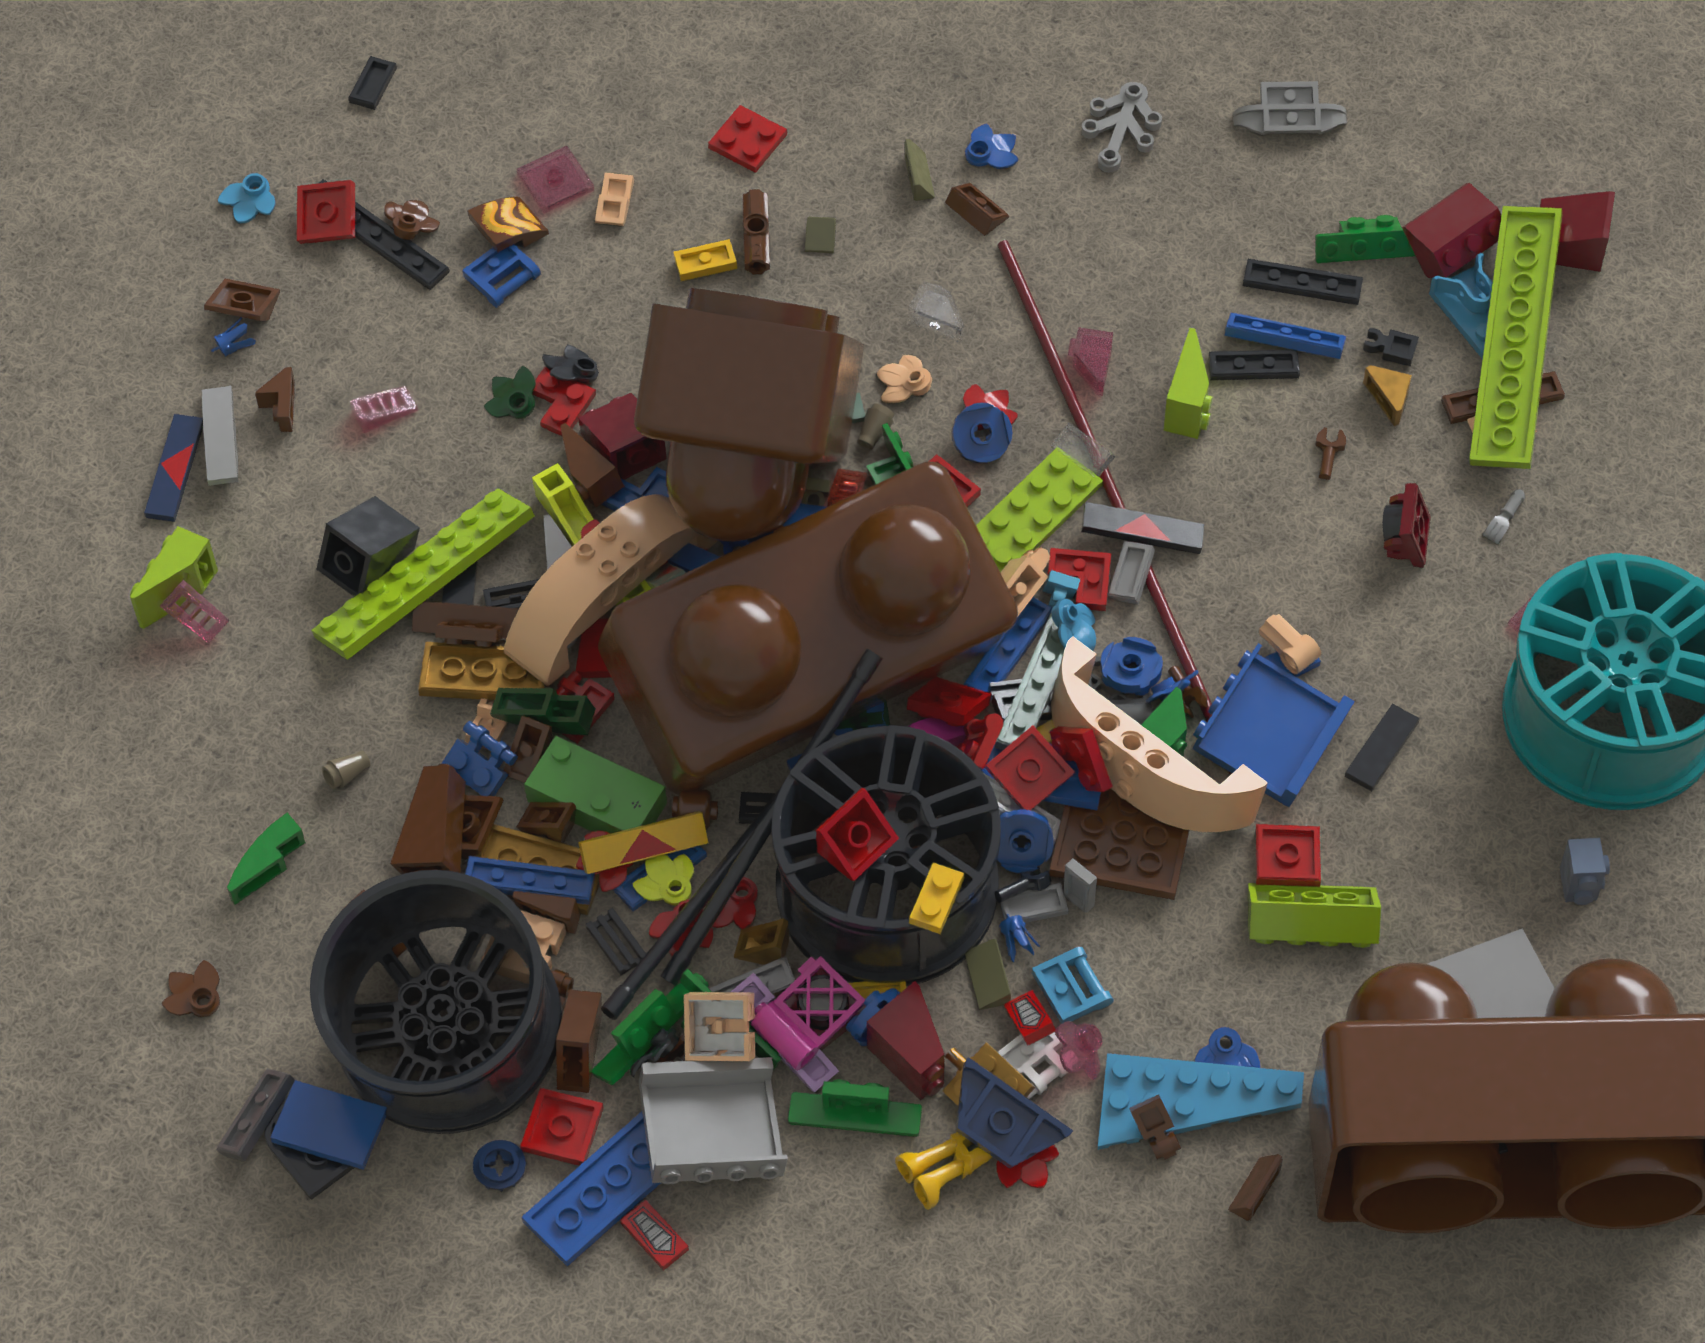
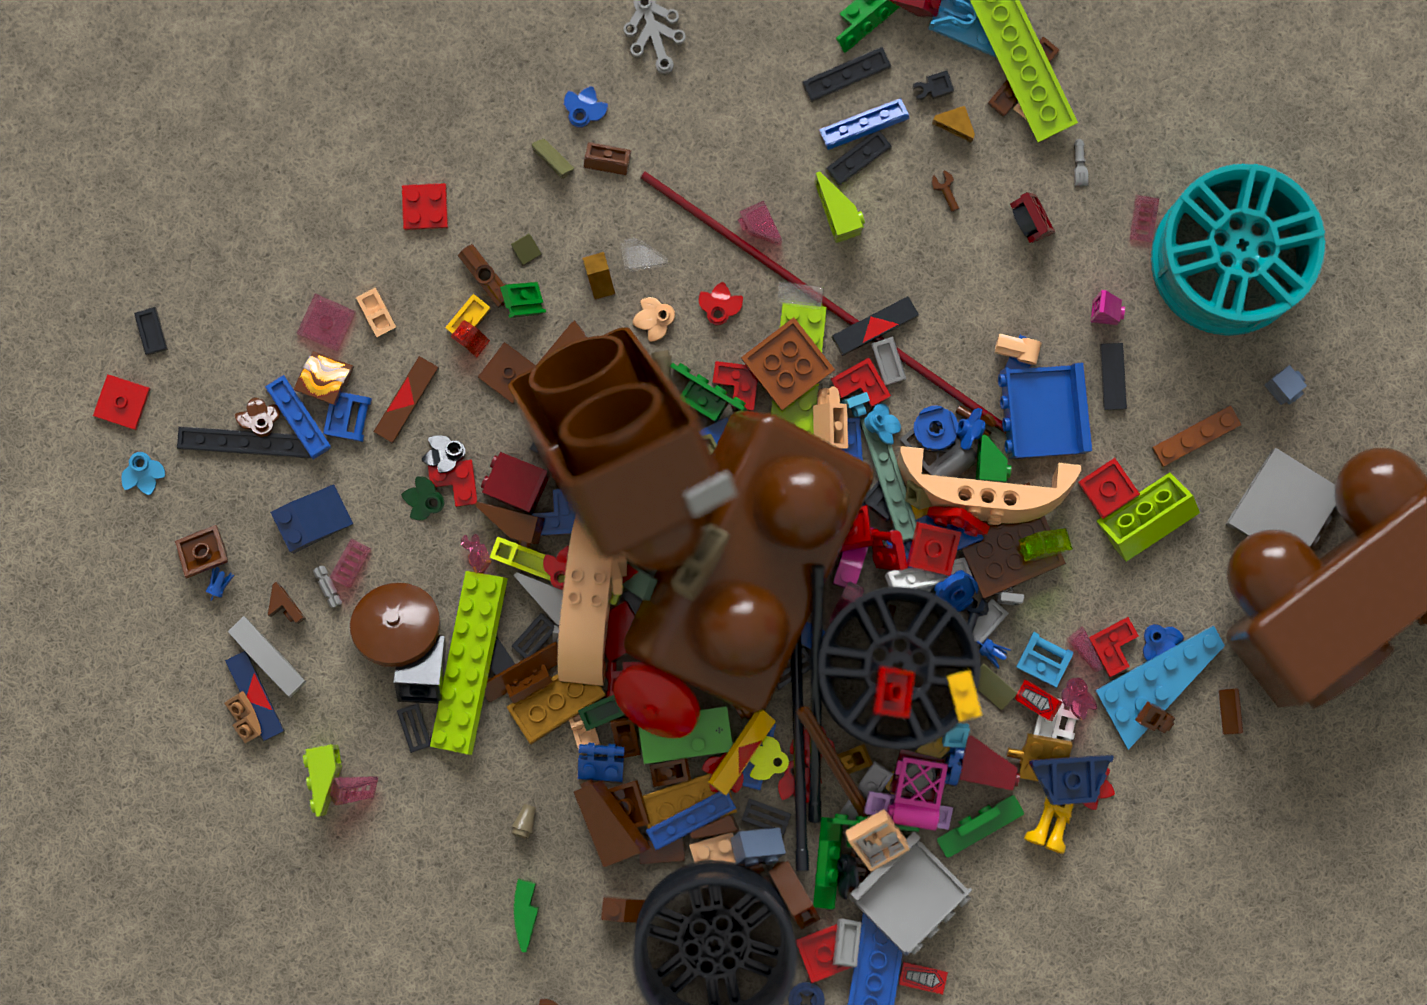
camera: 35 degrees left, 25 degrees up
(149, 469) = (247, 721): none -> medium nougat slope
(286, 125) = (121, 402): none -> red plate
(323, 604) = (423, 726): none -> black tile
(326, 212) = (203, 453): red plate -> none
(340, 414) = (327, 586): none -> light grey axle
(378, 484) = (395, 624): none -> reddish brown dish
(379, 339) = (311, 518): none -> dark blue slope
(450, 242) = (298, 417): none -> blue tile
(521, 479) = (478, 555): none -> clear pink plate
(575, 296) = (406, 399): none -> reddish brown tile
(579, 952) = (758, 846): none -> sand blue brick
(587, 703) = (656, 701): none -> red dish
(596, 1128) = (847, 943): none -> light grey tile
(656, 556) = (618, 569): none -> light nougat slope
(690, 274) = (470, 338): none -> clear red bracket
(737, 900) = (832, 759): none -> reddish brown axle
(742, 549) = (700, 566): none -> dark tan slope
(776, 271) = (523, 299): none -> green plate
(801, 430) = (710, 494): none -> light grey tile
(876, 306) = (599, 276): none -> pearl gold slope
(899, 972) = (957, 736): none -> medium azure tile
(990, 418) = (744, 326): blue plate -> none
(1014, 498) = (787, 364): none -> dark orange plate
(1052, 704) = (916, 496): none -> olive slope
(1129, 991) = (1082, 644): none -> clear pink slope
(1165, 851) = (1045, 544): none -> clear neon green slope
(1165, 1014) = (1108, 643): none -> red plate
(1423, 660) = (1107, 309): none -> dark pink slope
(1436, 868) = (1196, 436): none -> dark orange plate

